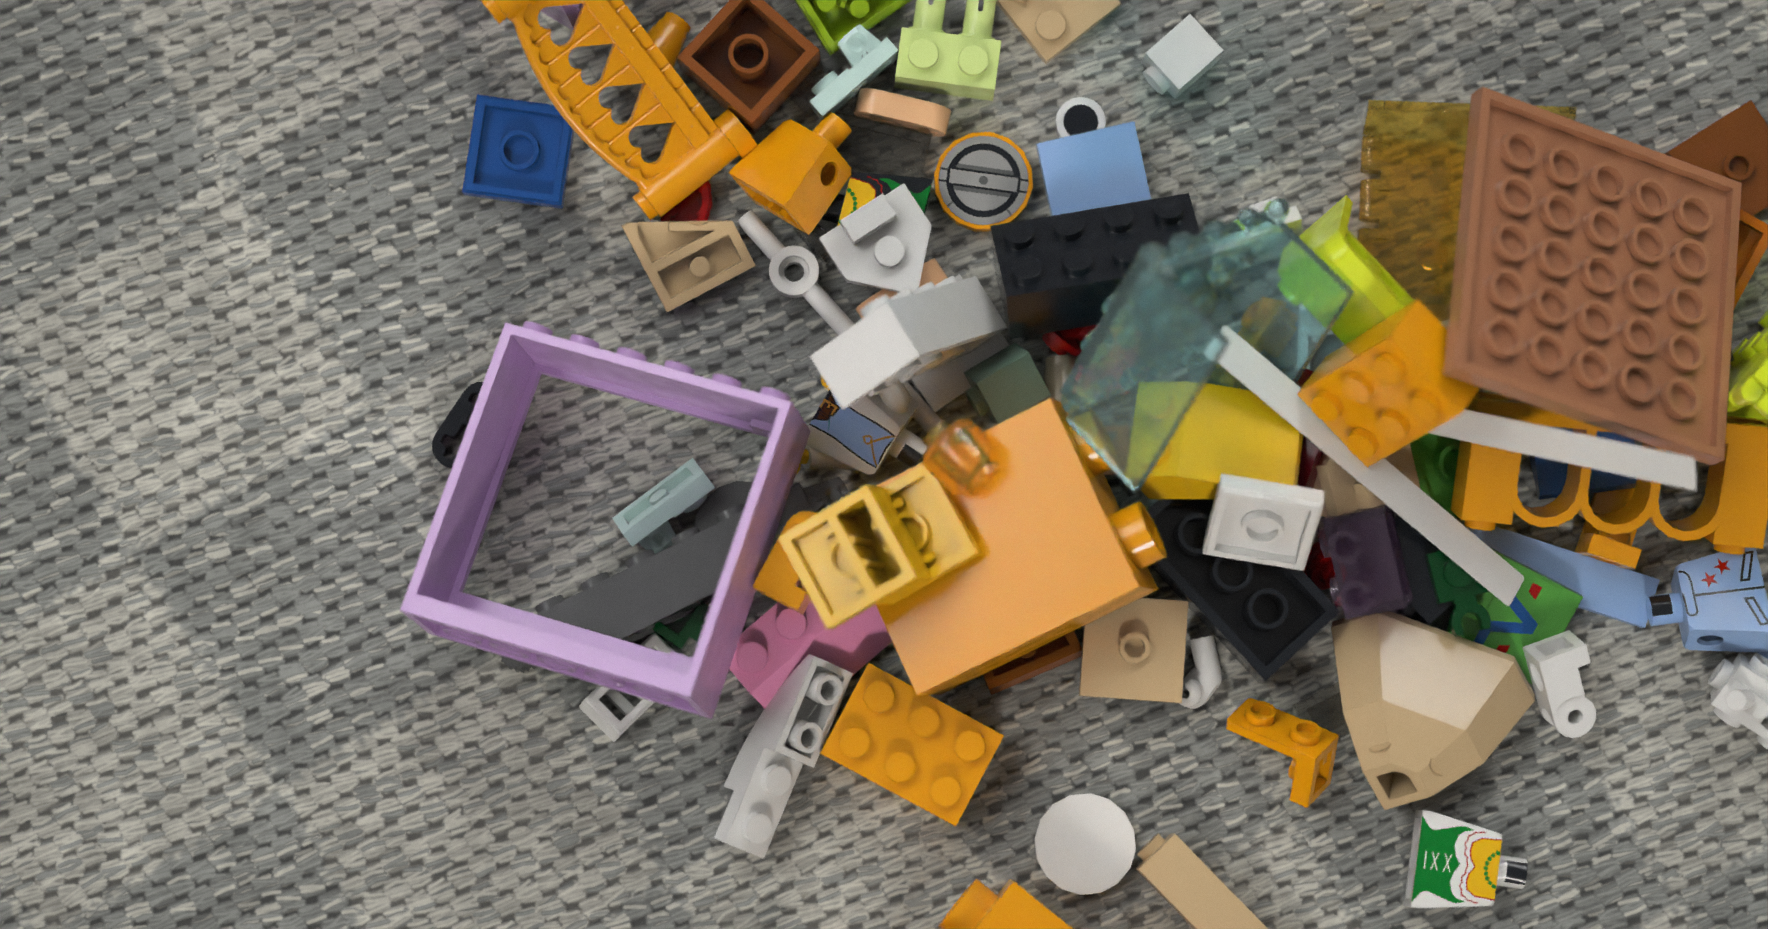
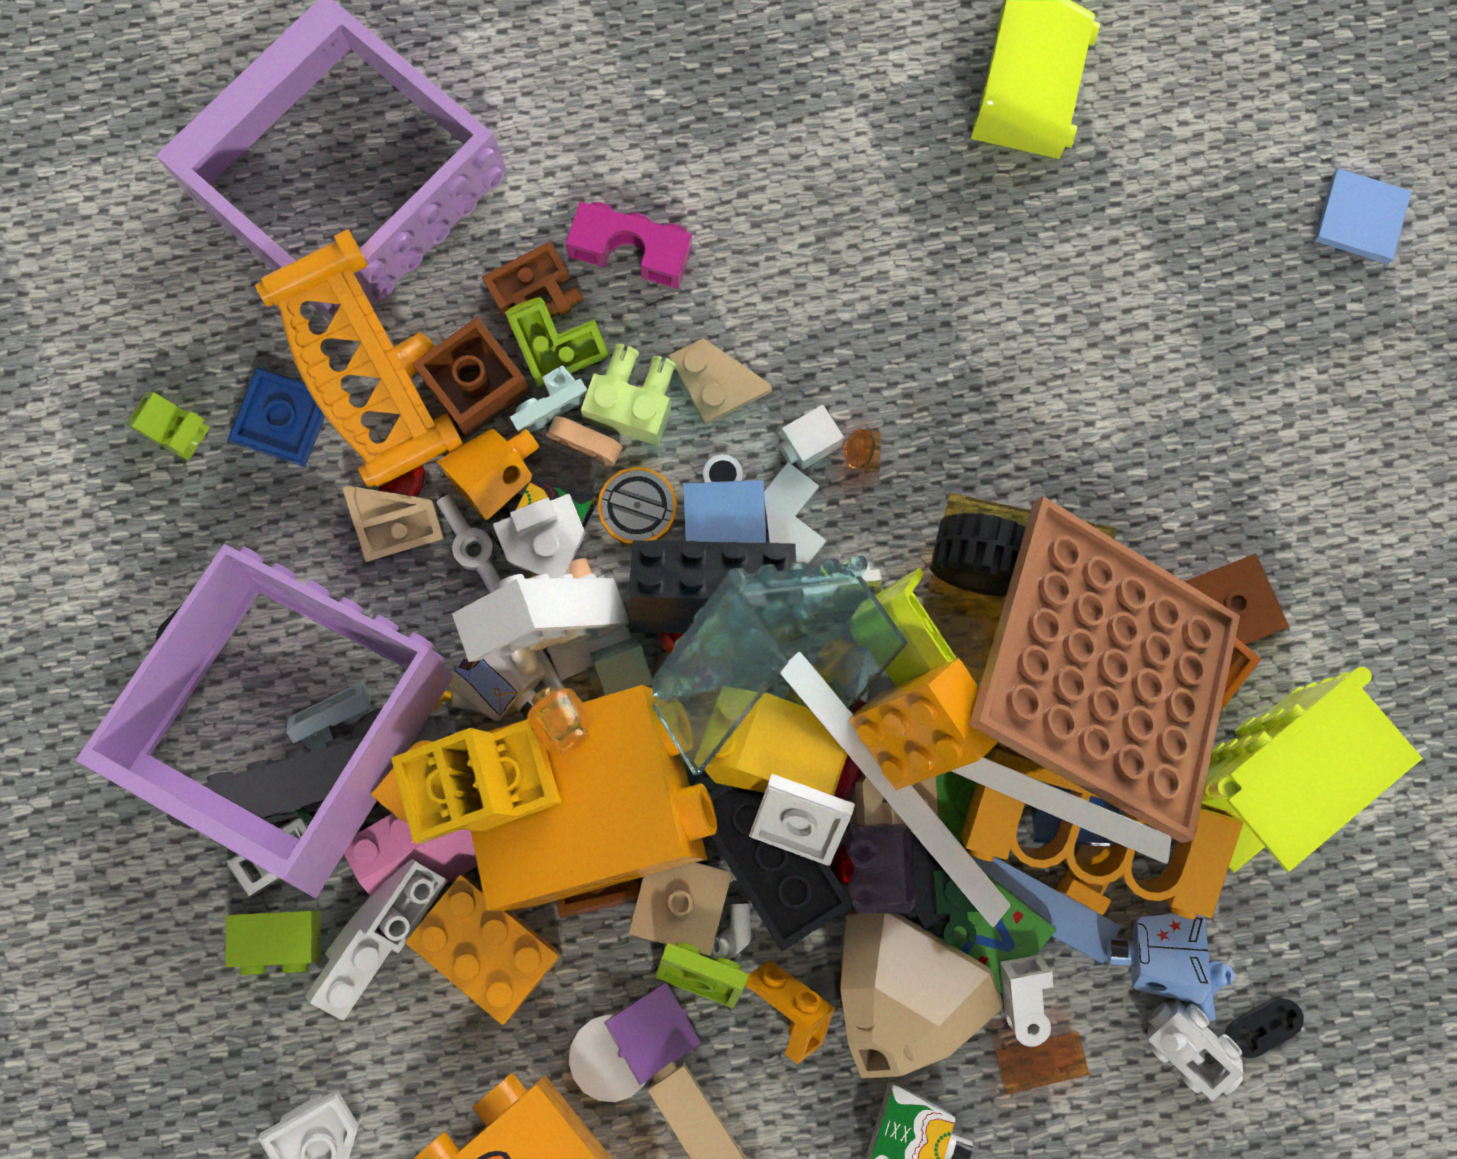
camera: 10 degrees right, 5 degrees down
(386, 187) = (168, 425): none -> lime brick
(658, 782) = (273, 939): none -> lime brick
(1128, 805) = (652, 1032): none -> medium lavender piece
(1162, 142) = (783, 502): none -> white tile
(1175, 727) = (710, 979): none -> lime plate
(1248, 60) = (863, 450): none -> clear orange plate
(1413, 165) = (977, 552): none -> black tyre
(1593, 756) = (1051, 1062): none -> clear orange plate

